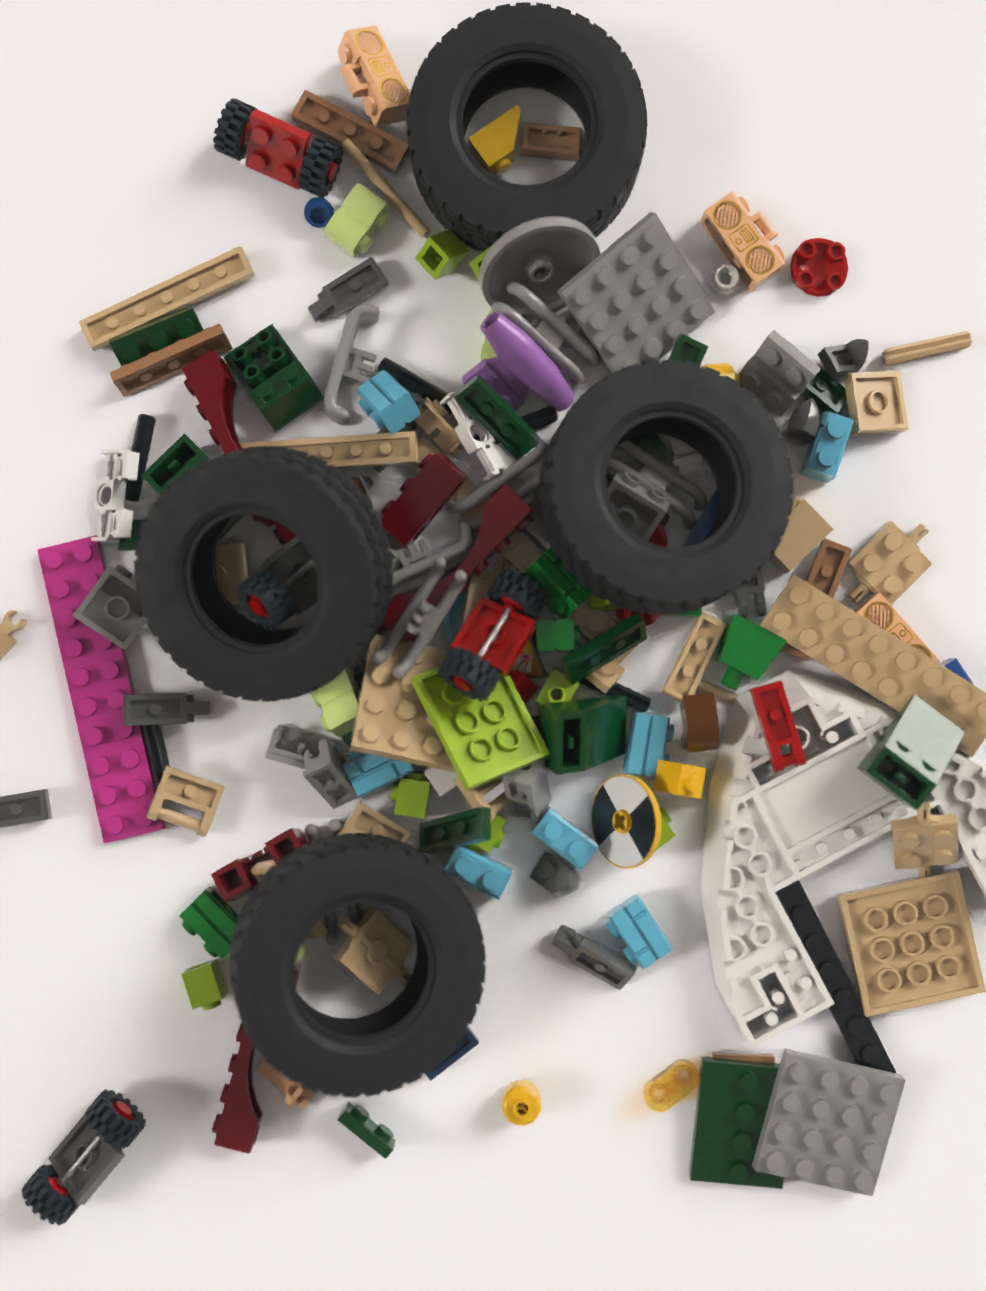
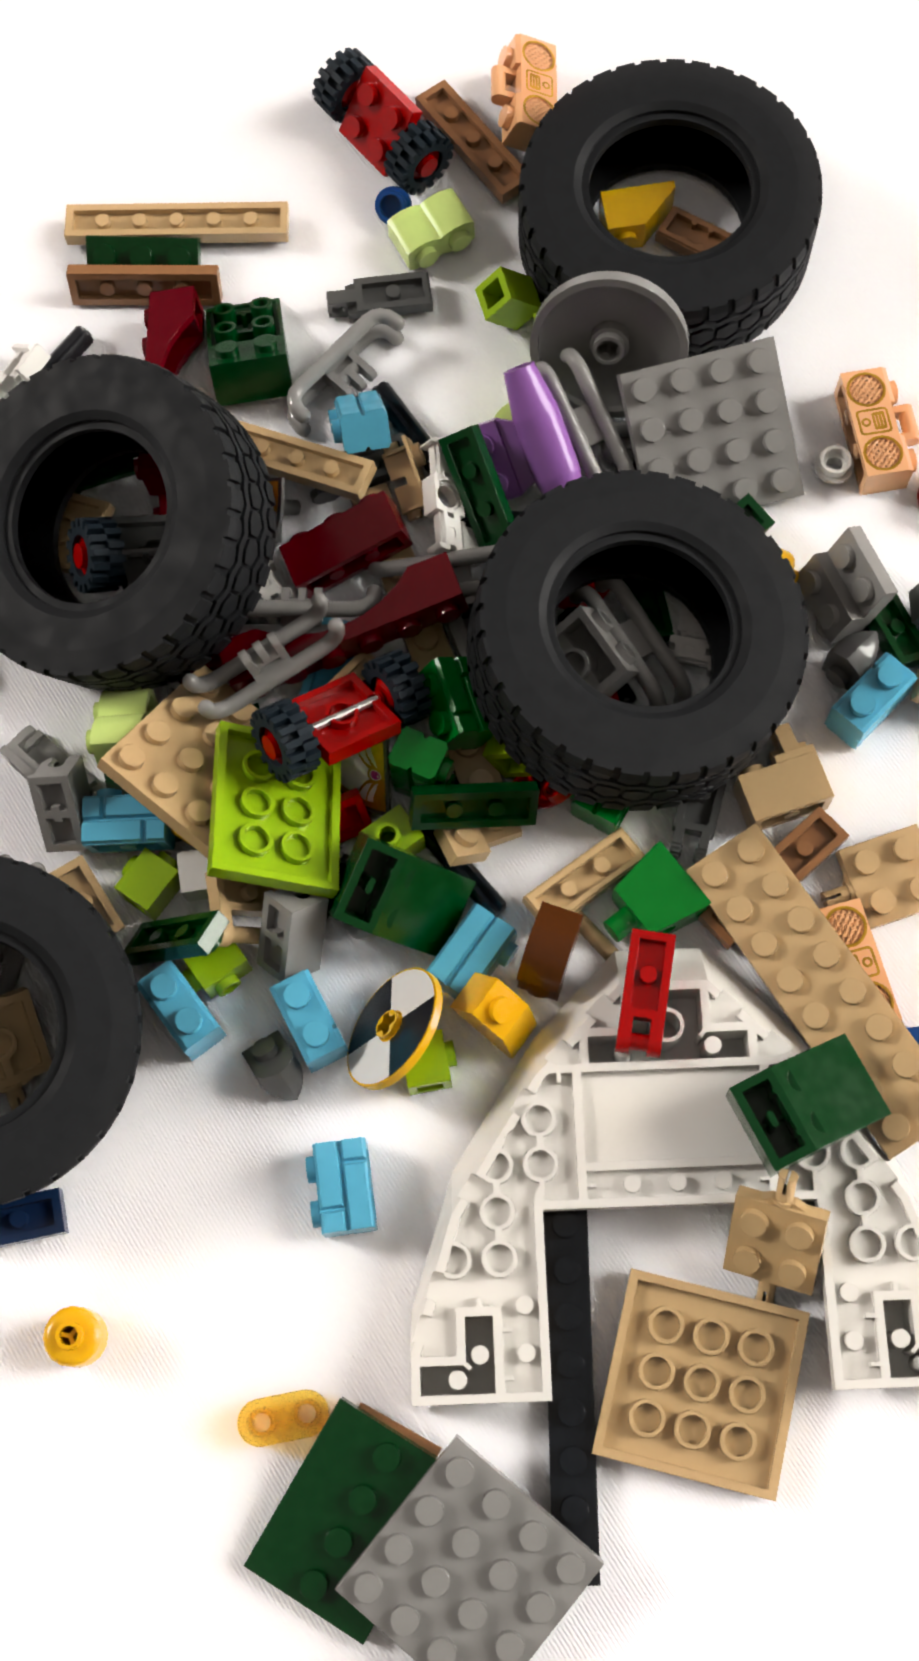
camera: 30 degrees right, 15 degrees down
(385, 188) = (479, 205): tan bar -> none
(594, 958) = (269, 1195): dark grey hinge -> none

